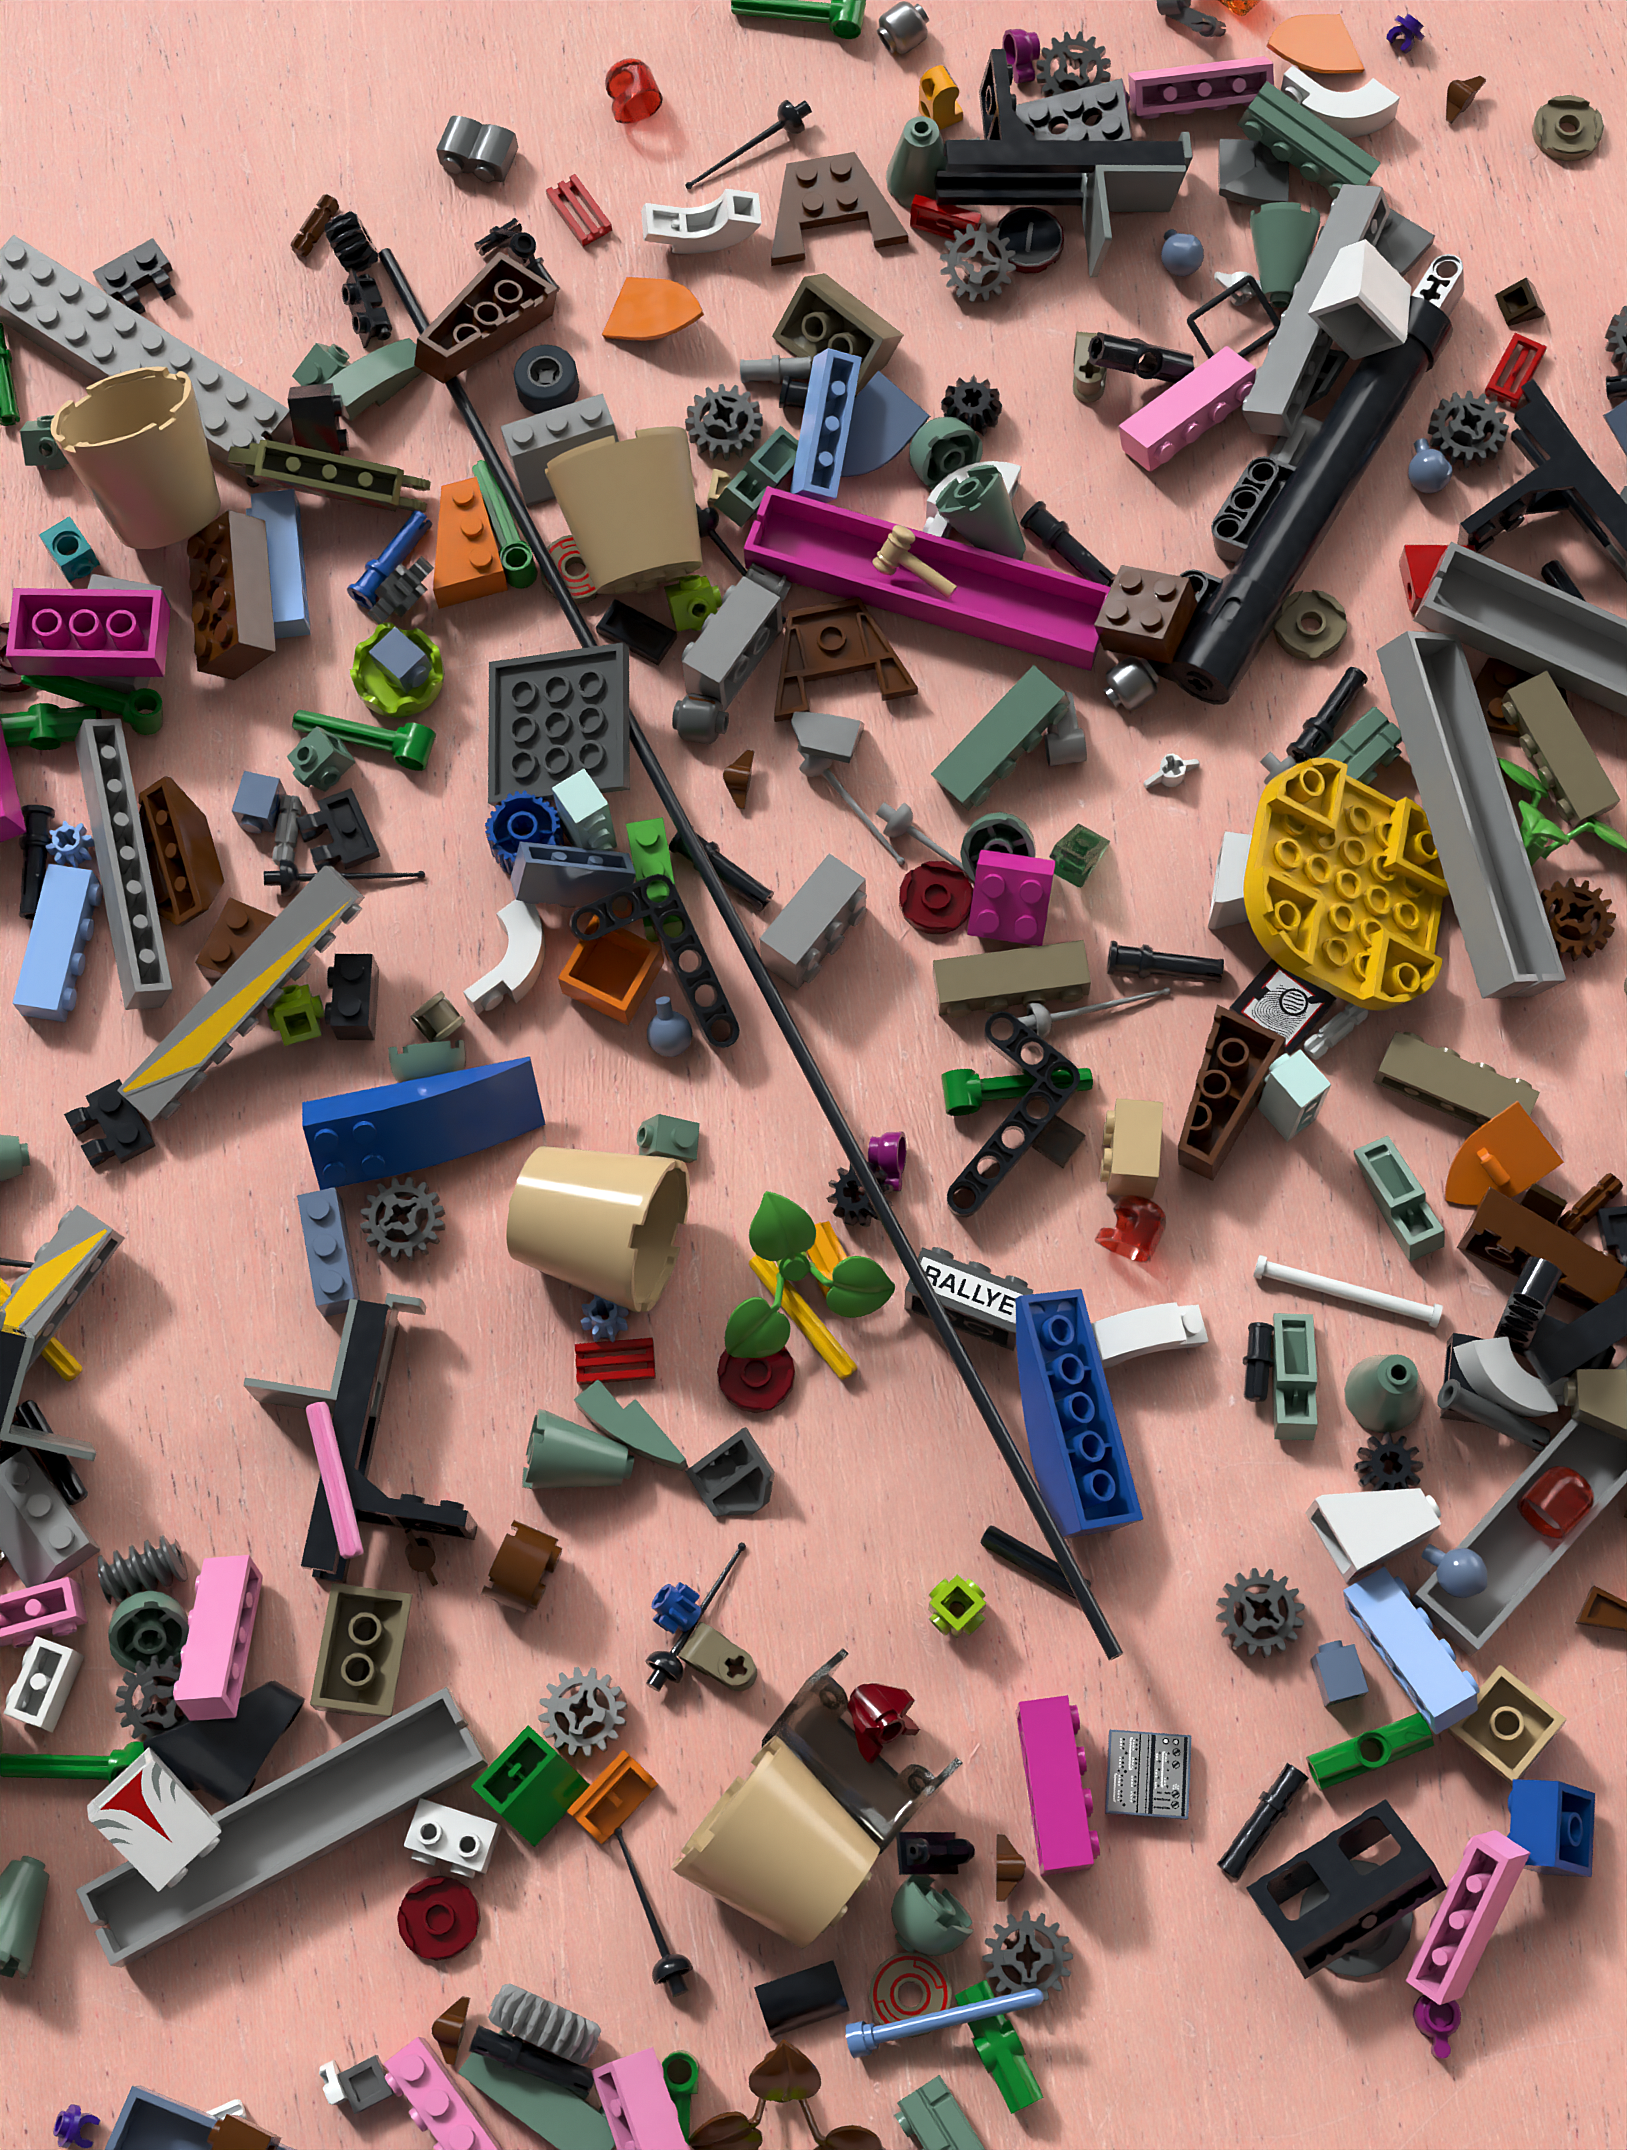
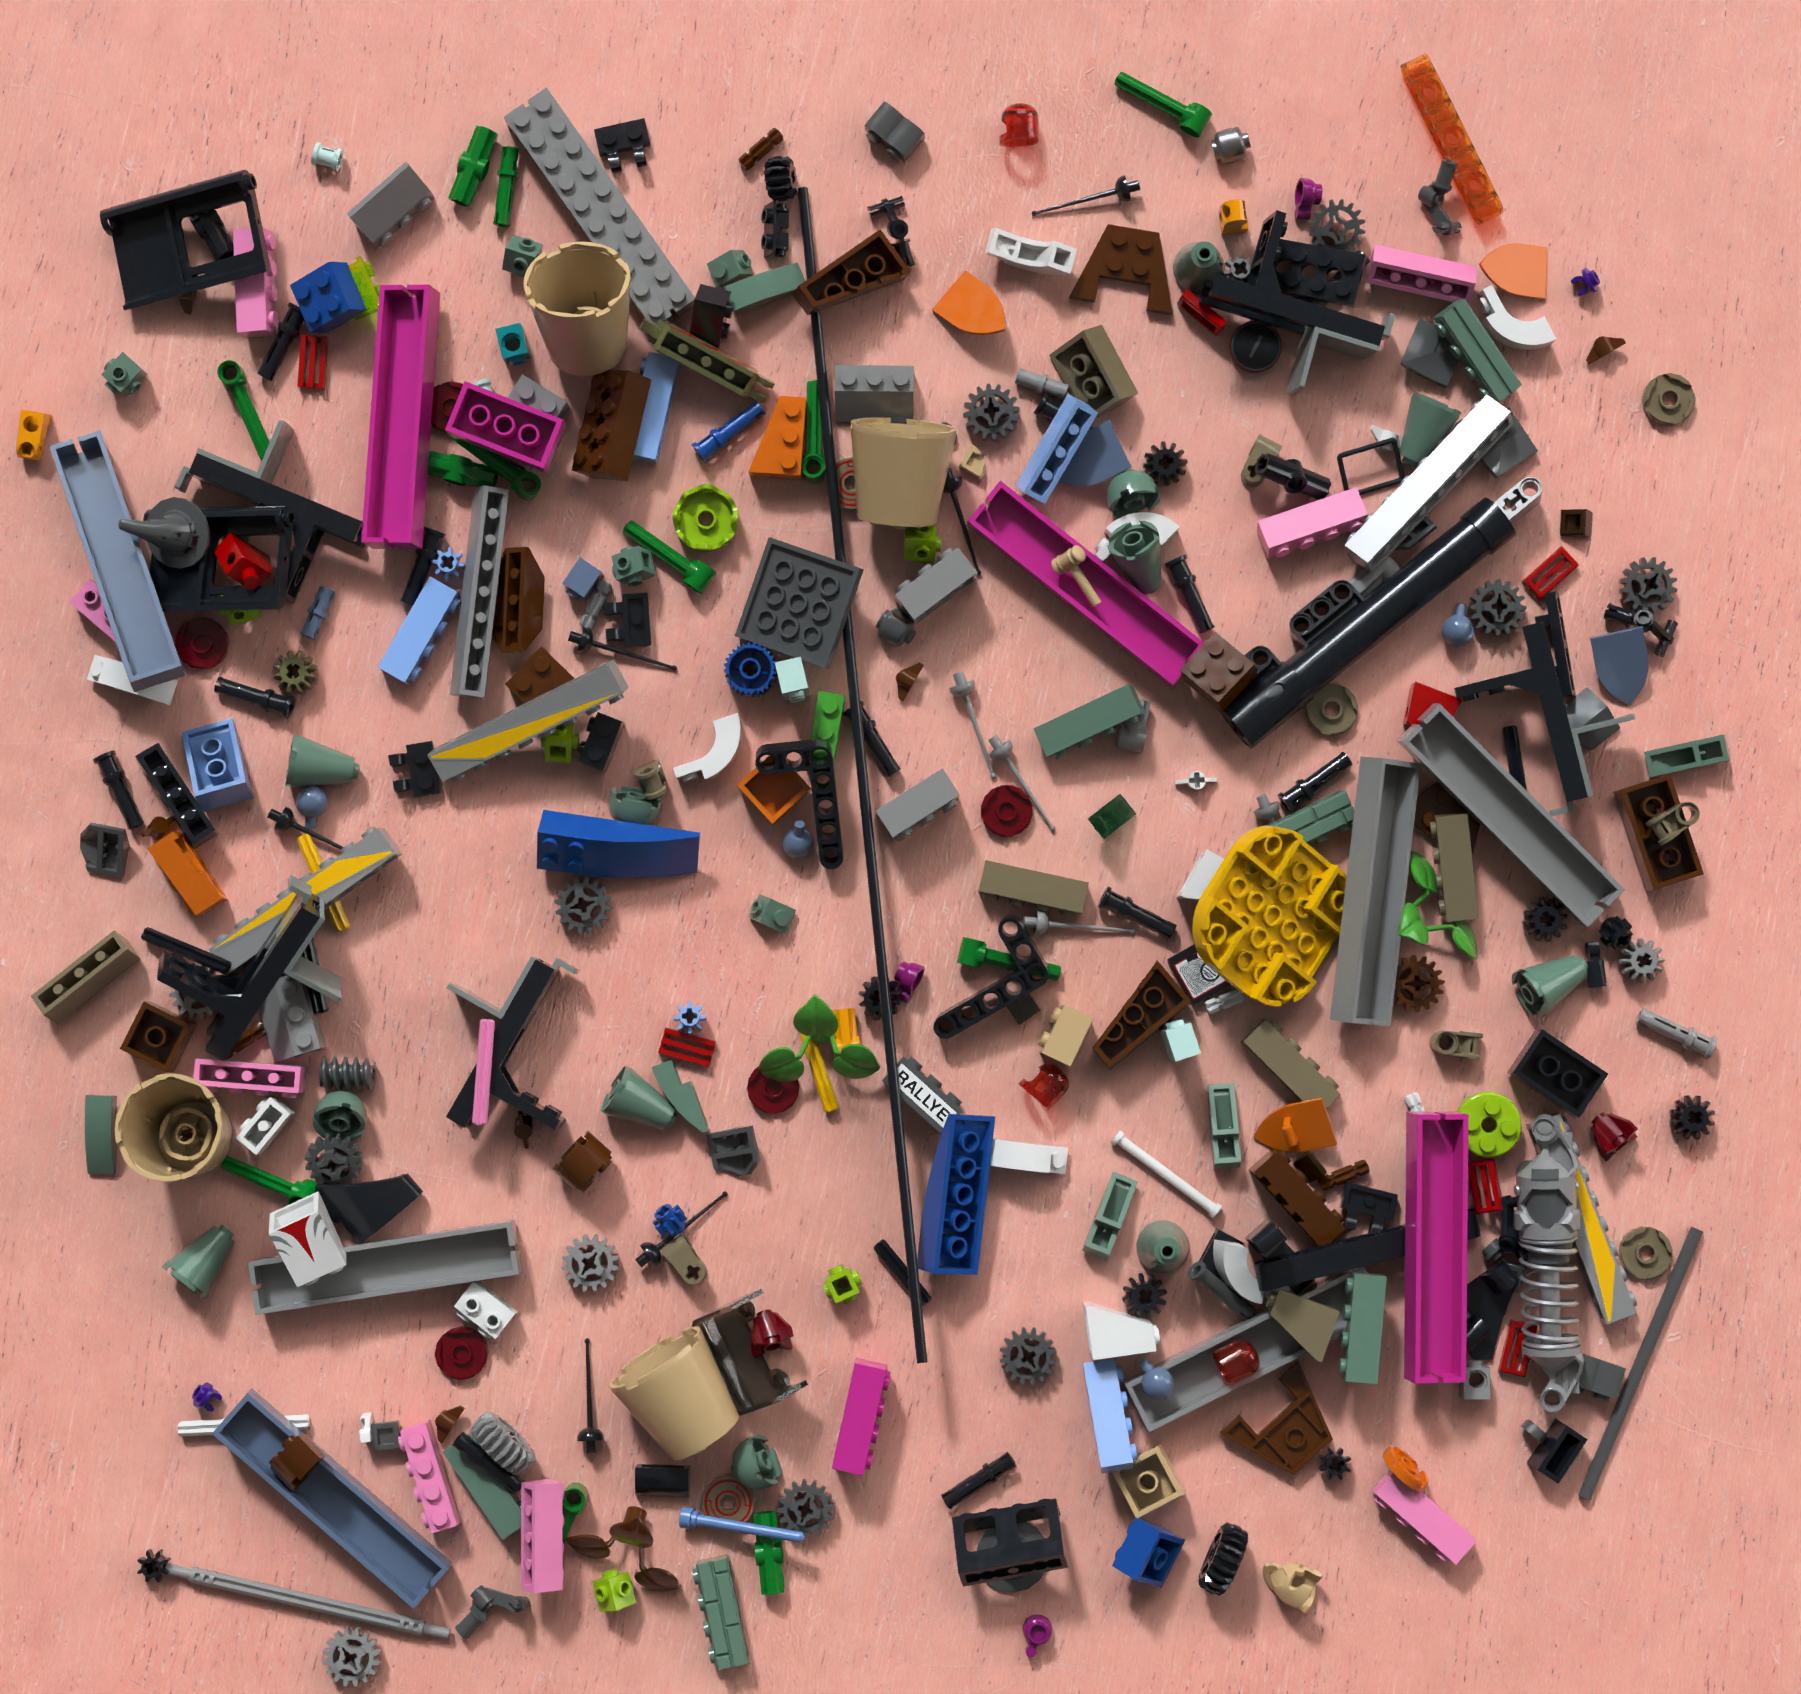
camera: 20 degrees right, 15 degrees up
(218, 1638) = (381, 1139): bright pink brick -> none
(328, 1251) = (529, 910): sand blue brick -> none
(361, 1651) = (467, 1177): dark tan slope -> none
(400, 590) = (726, 463): dark grey gear -> none
(401, 660) = (709, 517): sand blue brick -> none
(530, 1786) = (543, 1297): green slope -> none
(546, 378) = (875, 327): black wheel -> none
(565, 189) = (945, 185): tile -> none
(569, 875) = (770, 715): sand blue brick -> none
(600, 1221) = (706, 962): tan cone -> none
(613, 1797) = (590, 1320): orange hinge -> none
(638, 631) = (877, 546): black tile -> none
(764, 469) = (1000, 464): sand green slope -> none
(769, 580) = (977, 545): light grey pin -> none
(827, 735) = (975, 673): slope -> none
(831, 643) = (1003, 604): reddish brown wing -> none
(932, 1853) = (771, 1427): black hinge -> none
(975, 278) = (1218, 362): light grey gear -> none
(996, 833) = (1057, 799): sand green cylinder -> none
(1009, 1868) = (815, 1450): reddish brown piece -> none
(1011, 897) = (1052, 836): dark pink brick -> none
(1131, 683) = (1192, 710): flat silver head -> none
(1148, 1774) = (920, 1427): light grey tile -> none
(1181, 253) = (1355, 400): sand blue piece -> none
(1258, 1361) = (1090, 1199): black axle -> none
(1338, 1673) = (1061, 1410): sand blue brick -> none
(1363, 302) = (1459, 498): white slope -> none
(1394, 1743) = (1042, 1463): green piece -> none
(1467, 1916) = (1074, 1586): bright pink brick -> none

